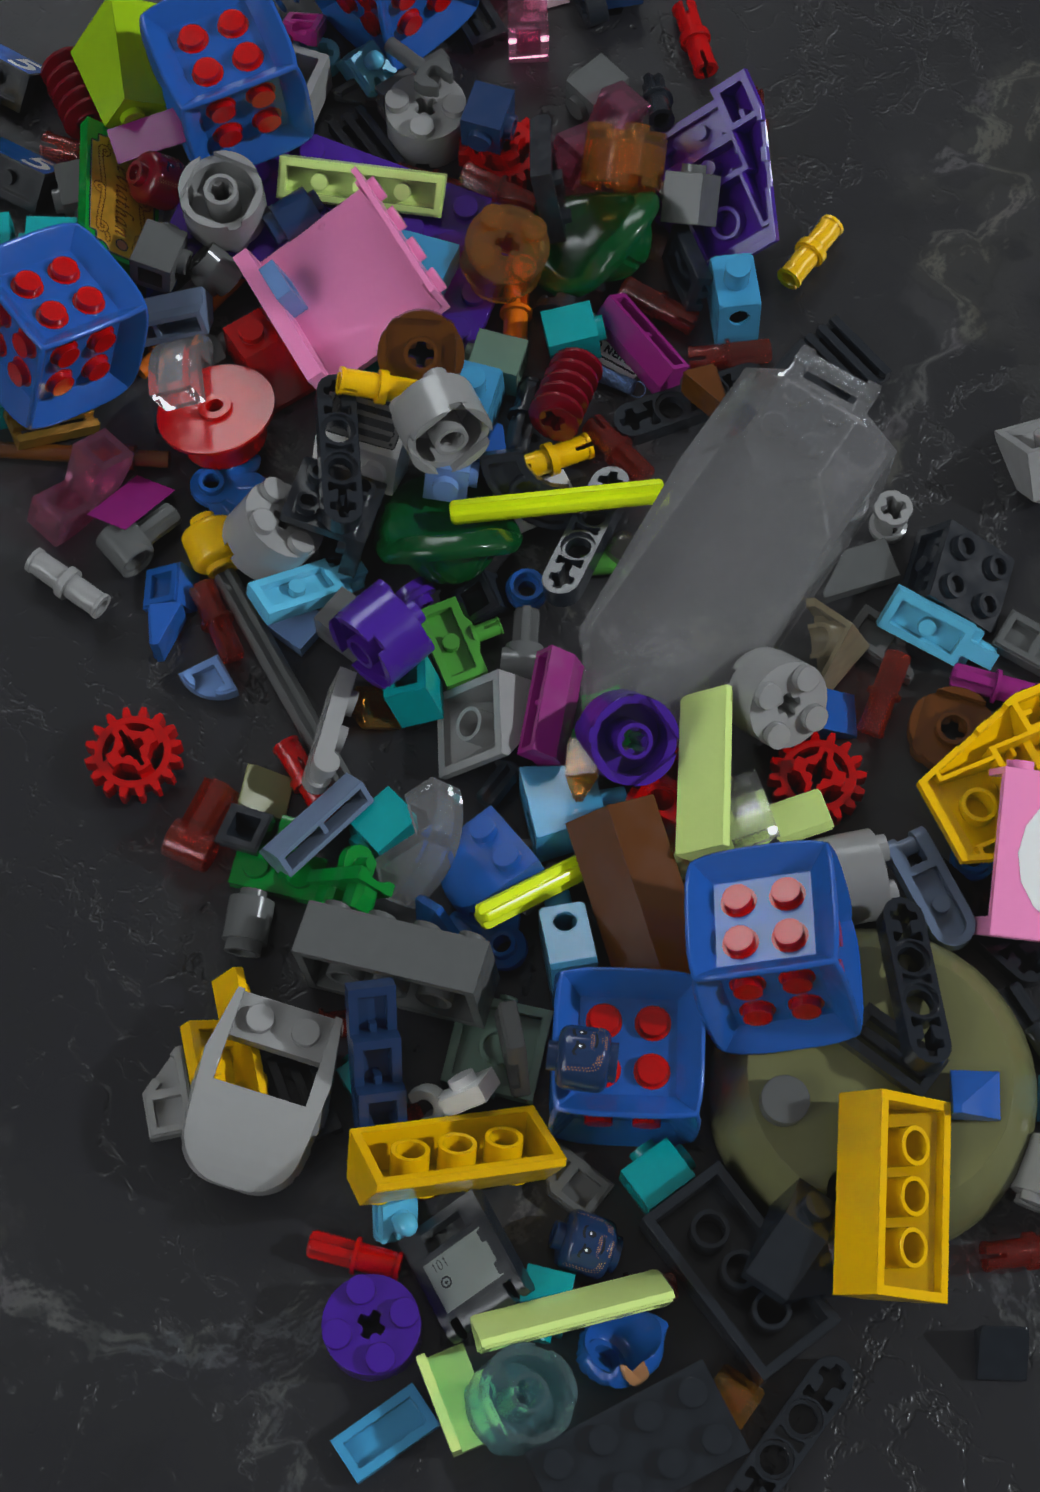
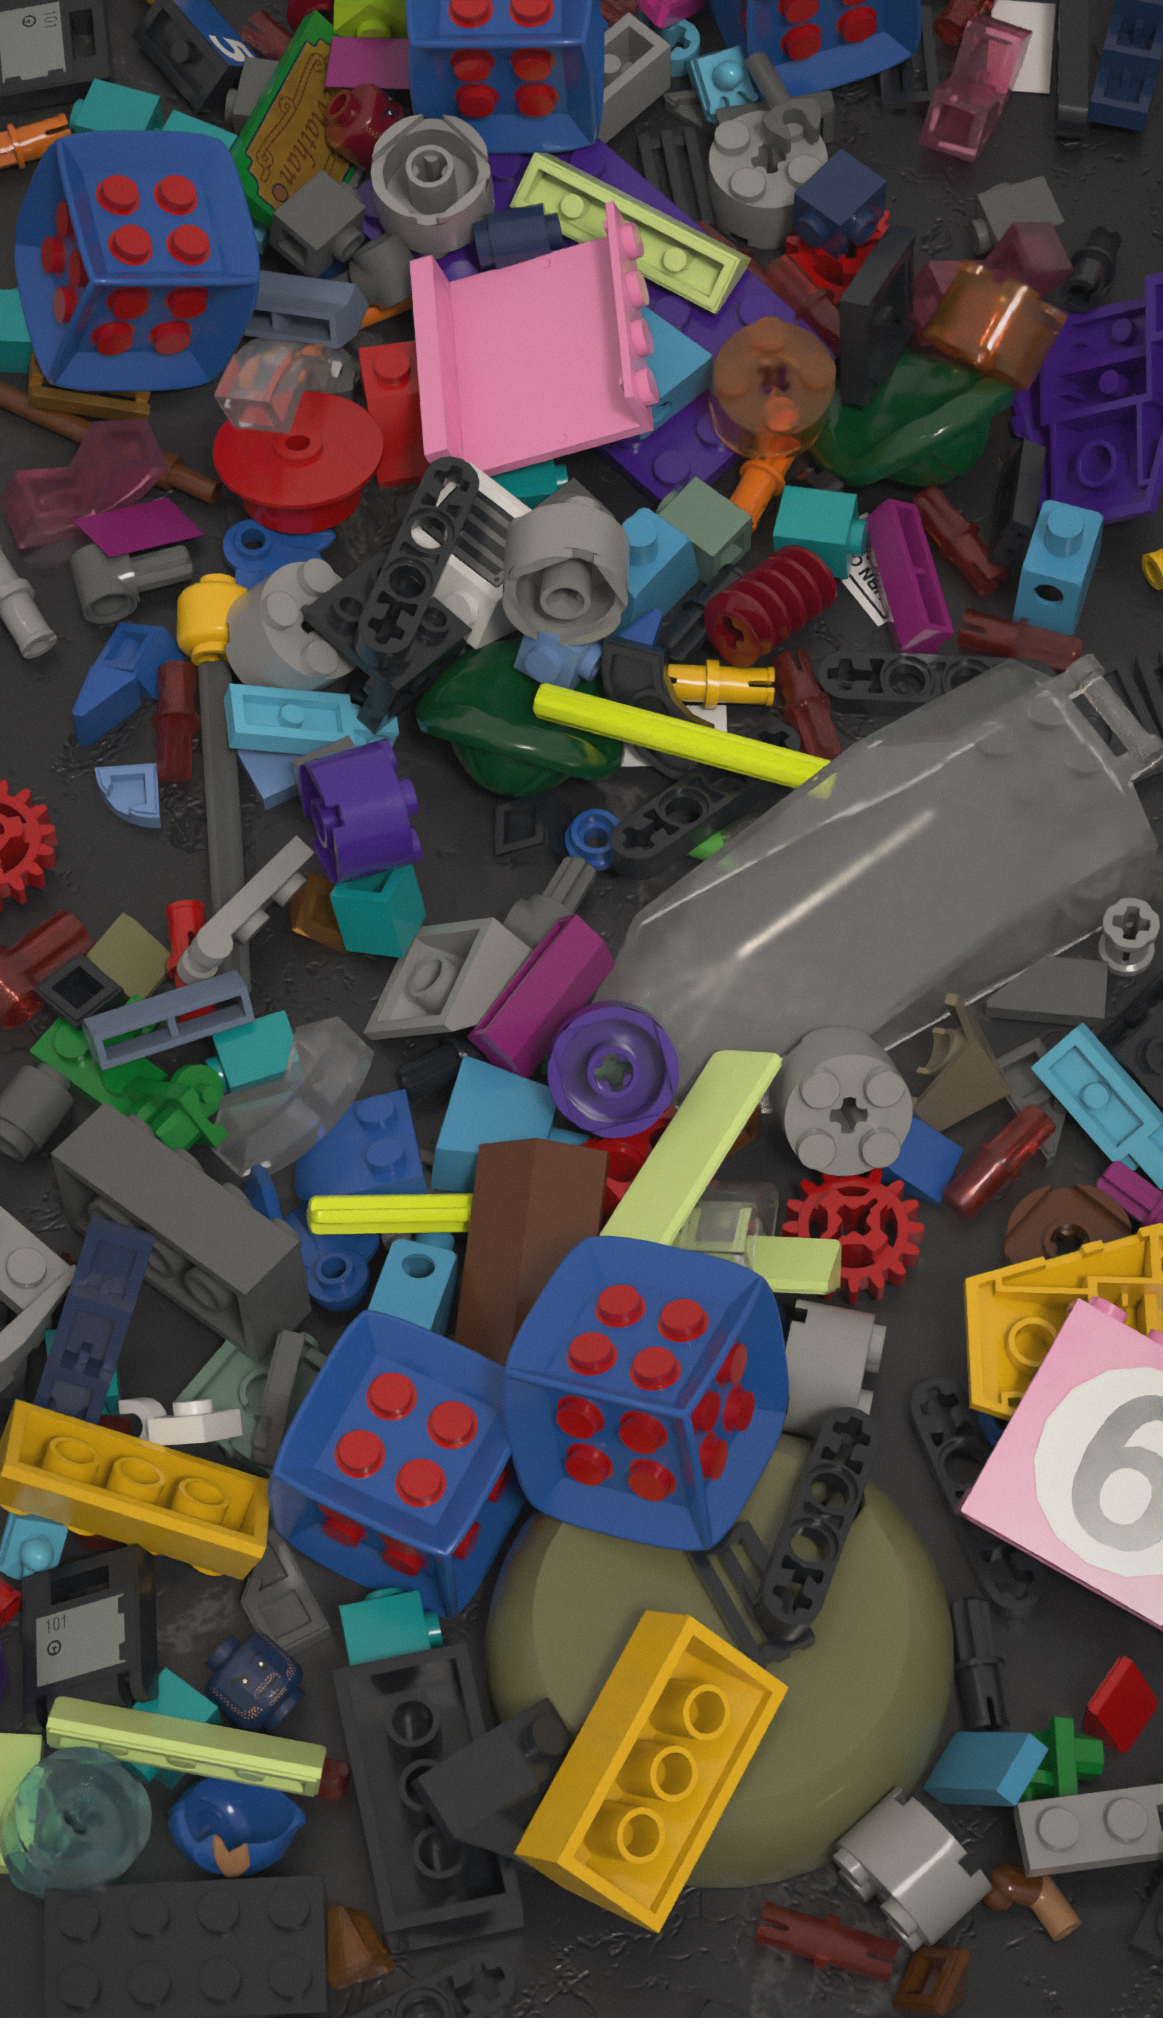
camera: 25 degrees right, 5 degrees down
(283, 288) = (455, 326): medium blue tile -> none
(371, 385) = (496, 488): yellow pin -> none
(416, 326) = (576, 440): reddish brown plate -> none
(417, 591) = (444, 789): dark purple plate -> none
(457, 642) = (468, 866): bright green plate -> none
(580, 770) = (527, 1084): slope -> none
(583, 1059) = (329, 1419): dark blue head -> none
(619, 381) = (855, 618): medium blue piece -> none
(690, 196) = (1061, 410): dark grey brick -> none
(703, 387) = (952, 660): reddish brown slope -> none
(784, 1100) = (576, 1595): dark grey tile -> none
(932, 889) = (925, 1433): sand blue plate -> none
(975, 1095) = (827, 1695): blue slope -> none

